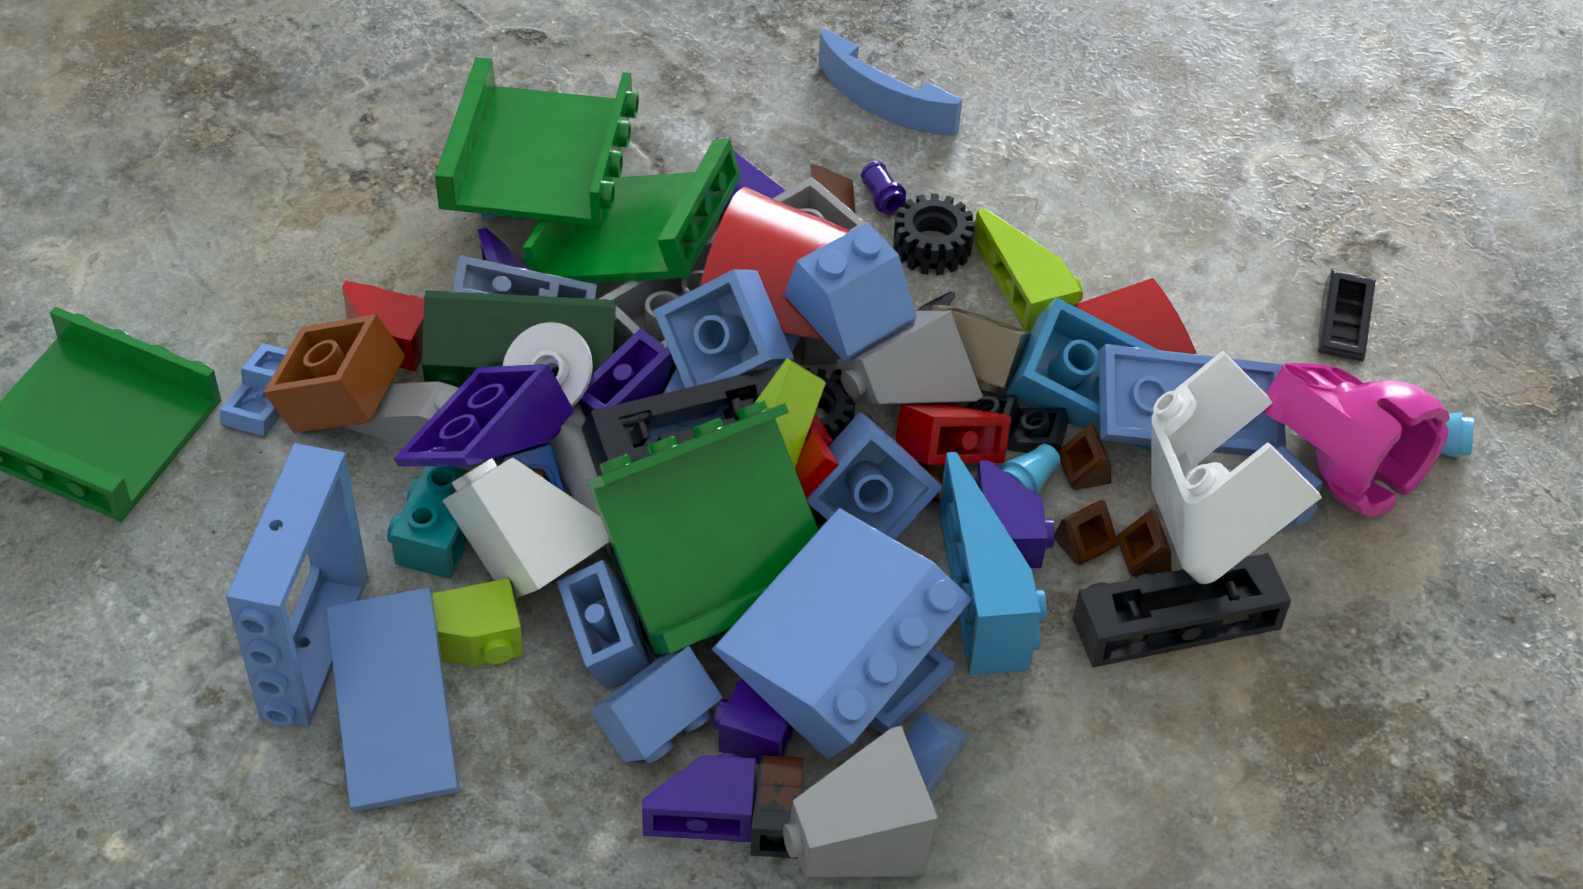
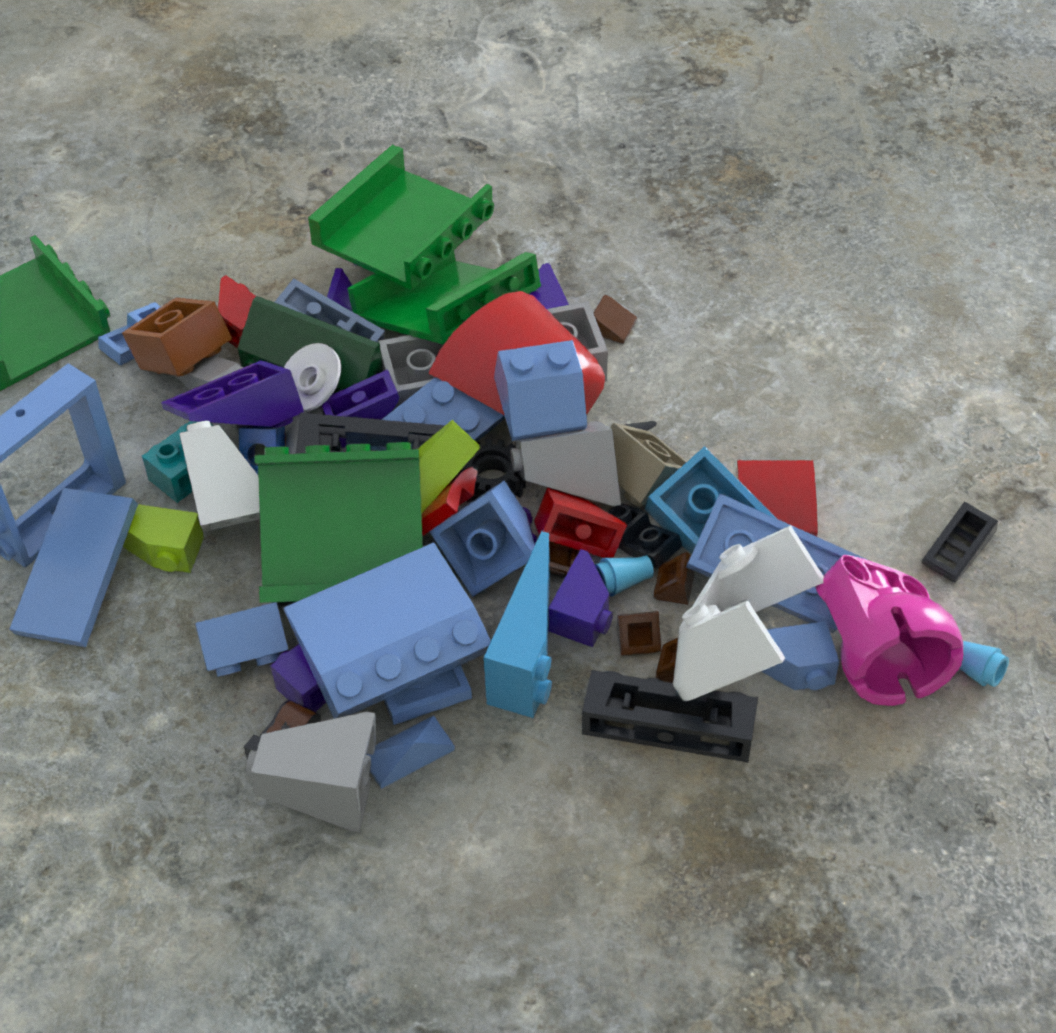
camera: 30 degrees right, 0 degrees up
(604, 624) = (237, 568): medium blue brick -> none
(704, 801) = (231, 713): dark purple slope -> none
(723, 329) = (436, 386): medium blue slope -> none
(886, 193) = (653, 335): dark purple pin -> none
(923, 109) = (719, 279): medium blue slope -> none
(929, 251) = (668, 360): black tyre -> none
(1023, 269) = (721, 424): lime slope -> none

